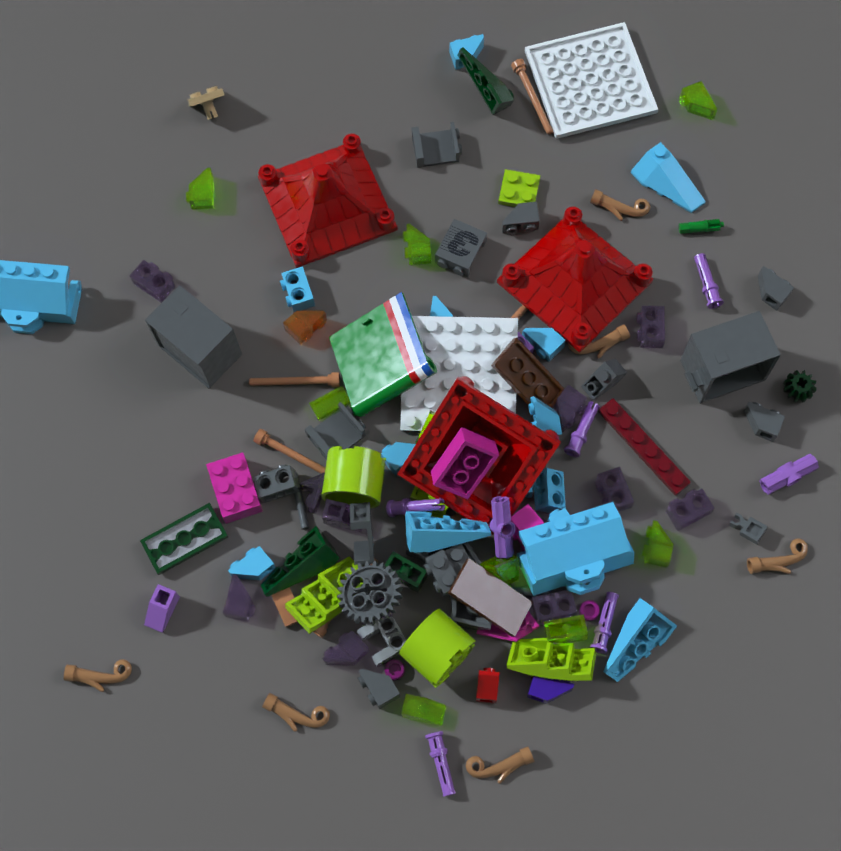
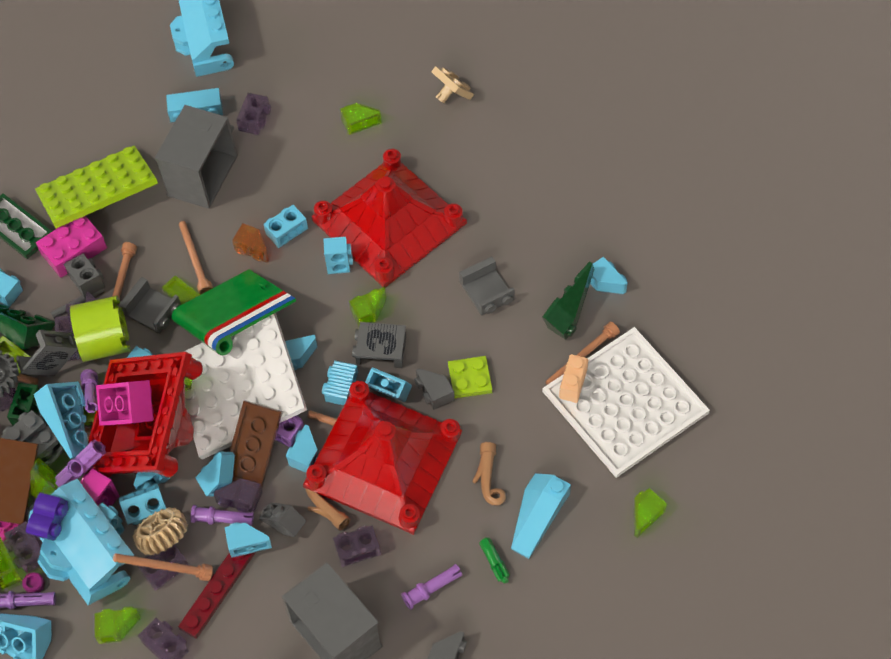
camera: 70 degrees right, 10 degrees down
(116, 331) = (206, 100): none -> medium azure brick
(176, 446) = (95, 186): none -> lime plate
(355, 252) = (337, 255): none -> medium azure brick
(486, 292) = (340, 378): none -> medium azure brick
(507, 252) = (388, 384): none -> medium azure brick
(554, 564) = (47, 516): none -> dark purple brick
(562, 105) = (573, 378): none -> light nougat brick
(593, 471) = (160, 531): none -> tan gear
(619, 411) = (245, 539): none -> medium azure slope
(632, 459) = (202, 571): none -> nougat piece

